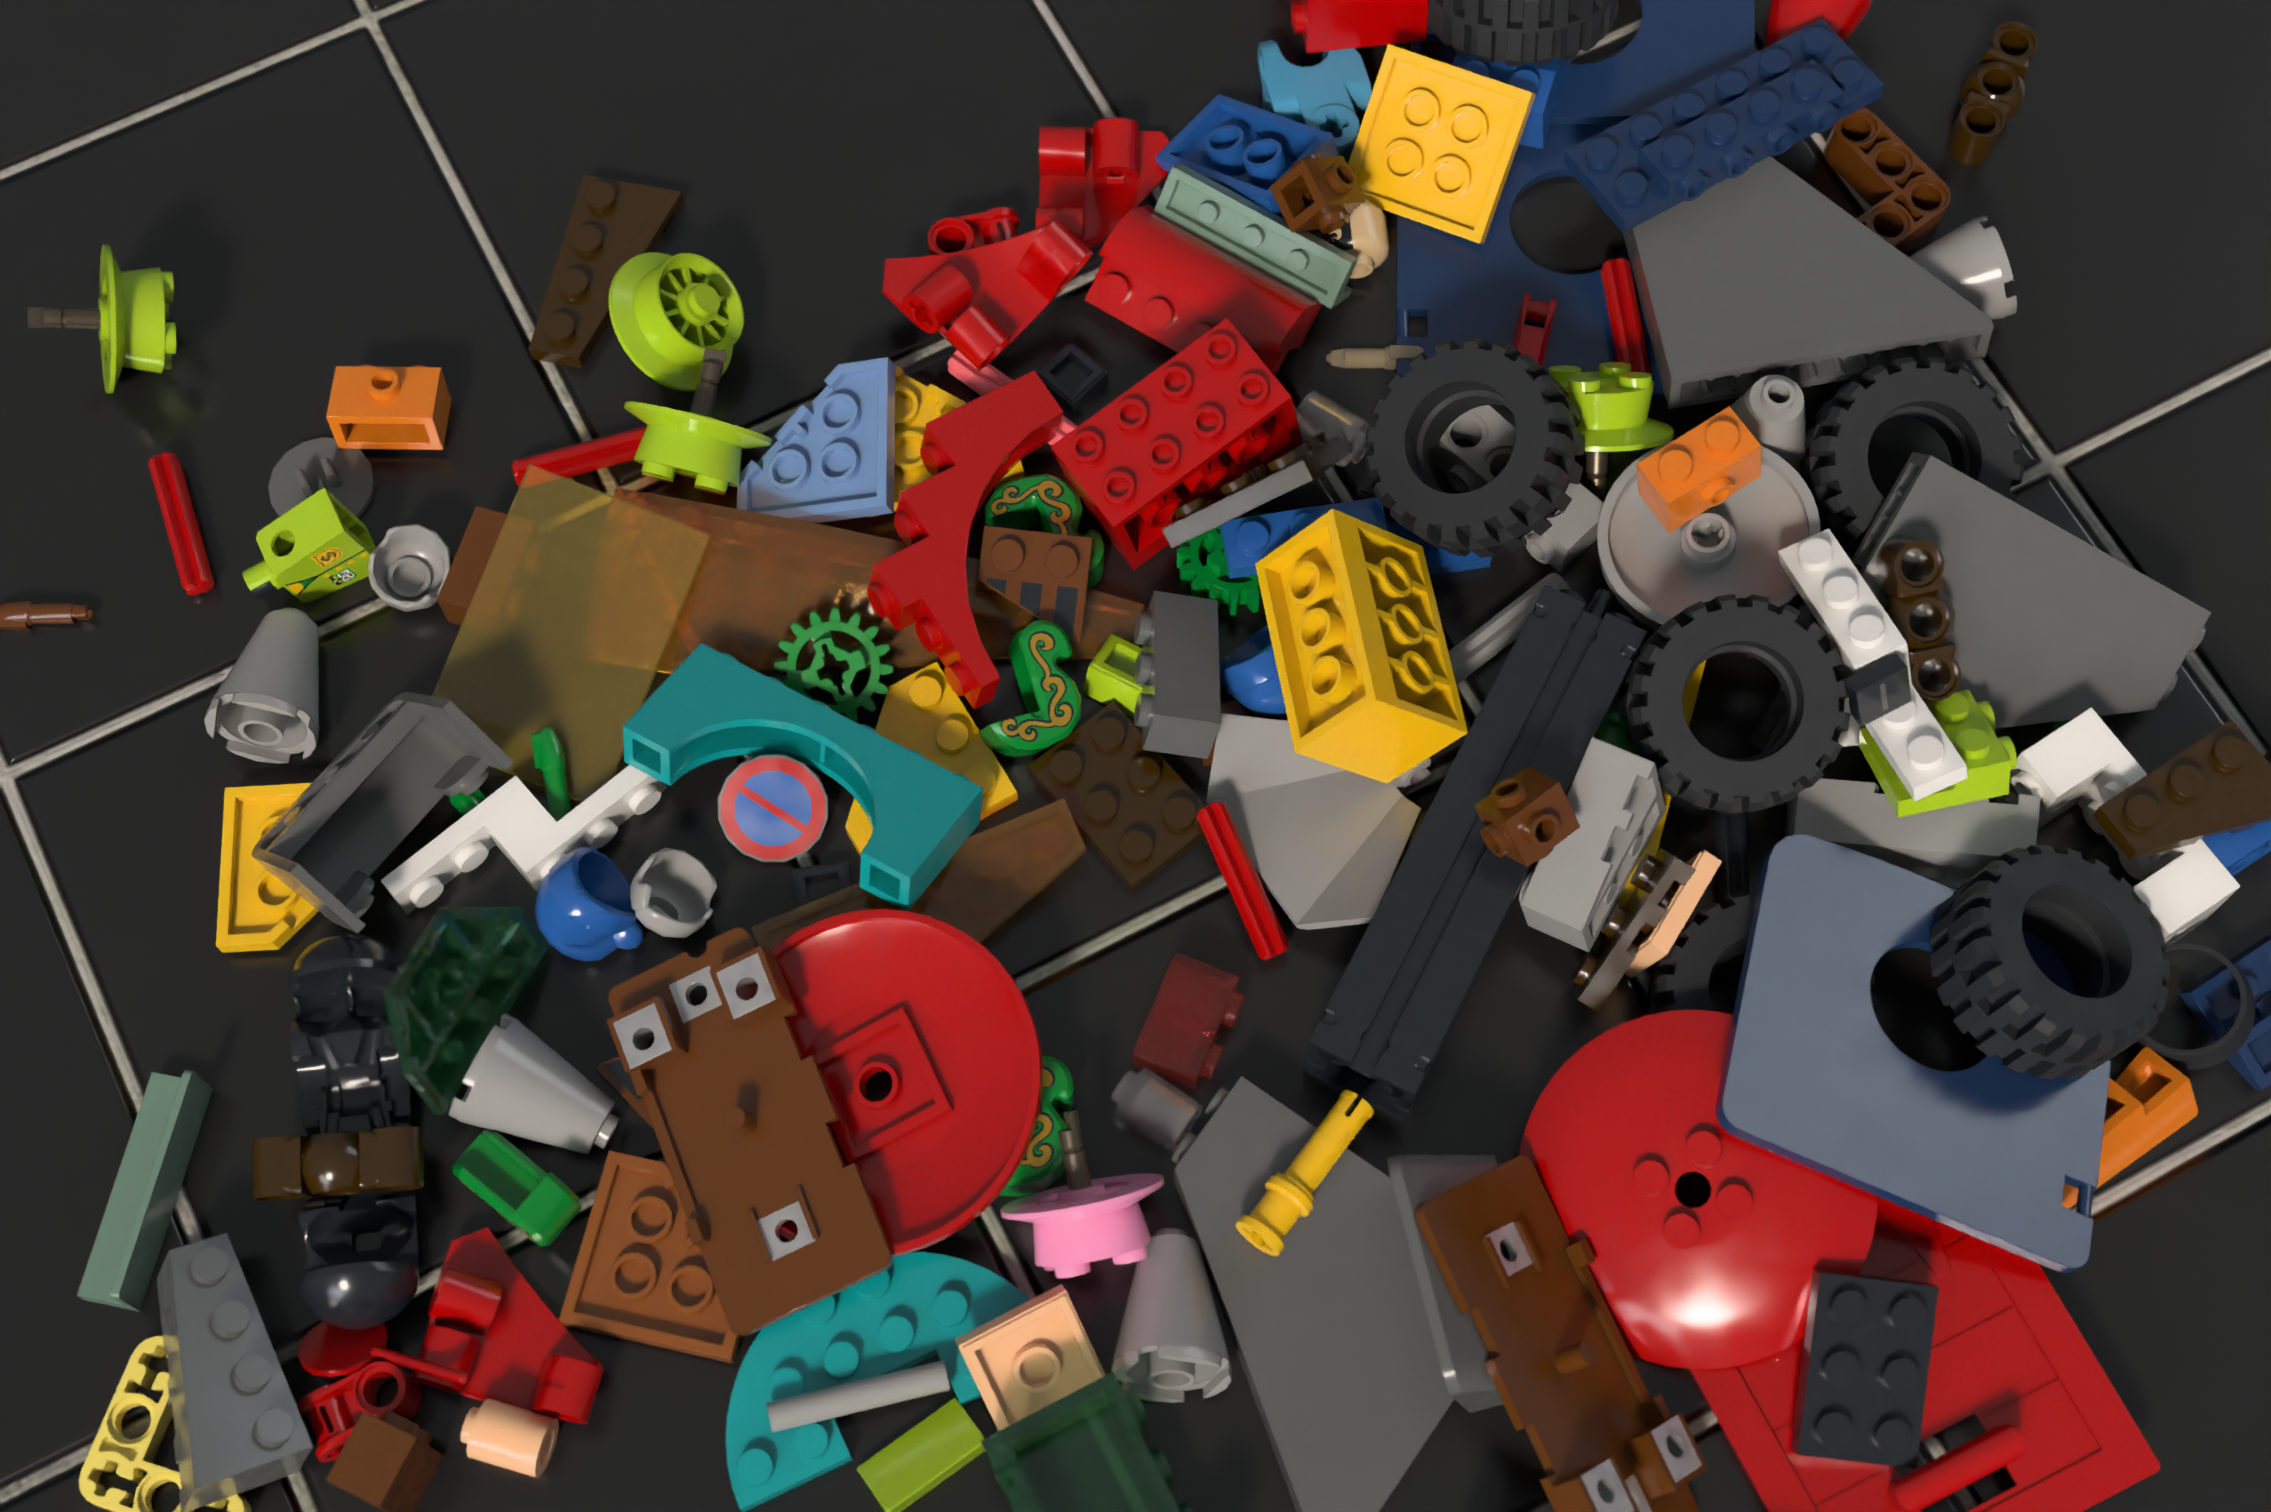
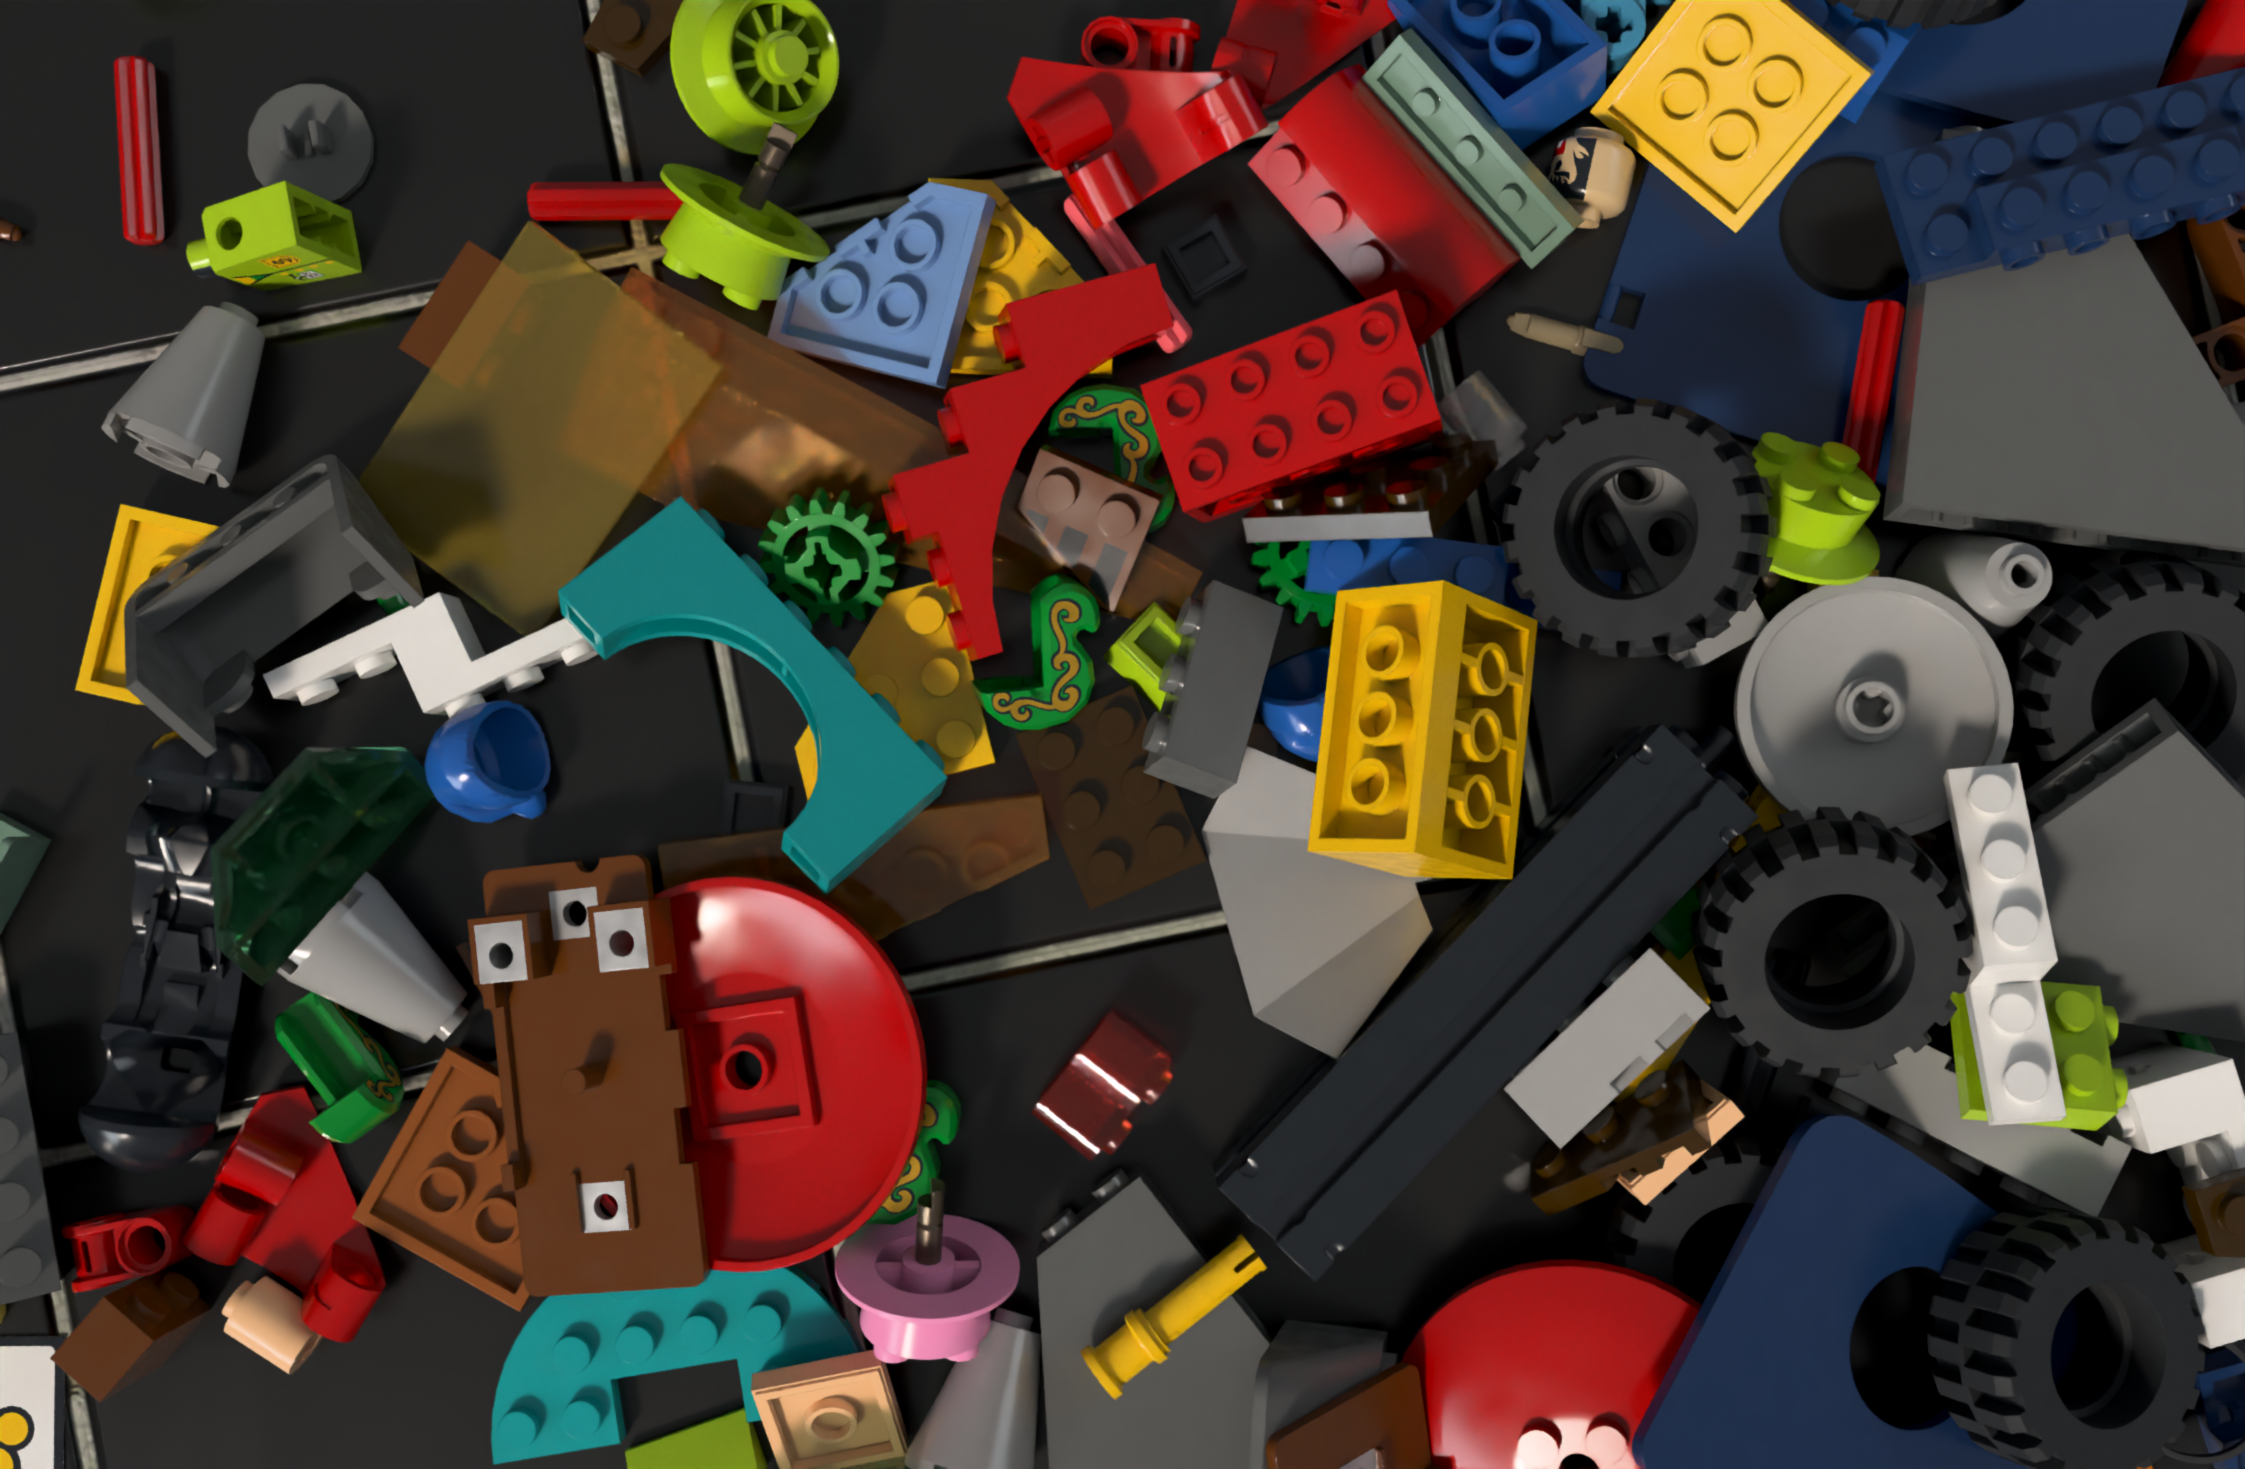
camera: 15 degrees right, 20 degrees up
(337, 1163) = (147, 993): dark brown piece -> none
(340, 1351) = (121, 1193): red piece -> none
(389, 407) = (401, 73): orange brick -> none
(409, 567) = (379, 291): light grey hair -> none
(551, 760) = (487, 577): green piece -> none
(672, 893) = (582, 778): light grey hair -> none
(773, 807) = (719, 705): piece -> none
(857, 1396) = (640, 1393): light grey piece -> none
(1156, 1108) = (1041, 1171): clear brick -> none
(1242, 880) = (1211, 941): red axle -> none
(1317, 194) = (1563, 126): reddish brown brick -> none
(1499, 630) = (1604, 720): light grey axle -> none
(1526, 817) = (1541, 1021): reddish brown brick -> none
(1532, 339) = (1751, 380): red bar -> none
(1699, 469) = (1894, 639): orange brick -> none
(1878, 689) = (2001, 993): black tile -> none
(1907, 593) = (2086, 897): dark brown piece -> none

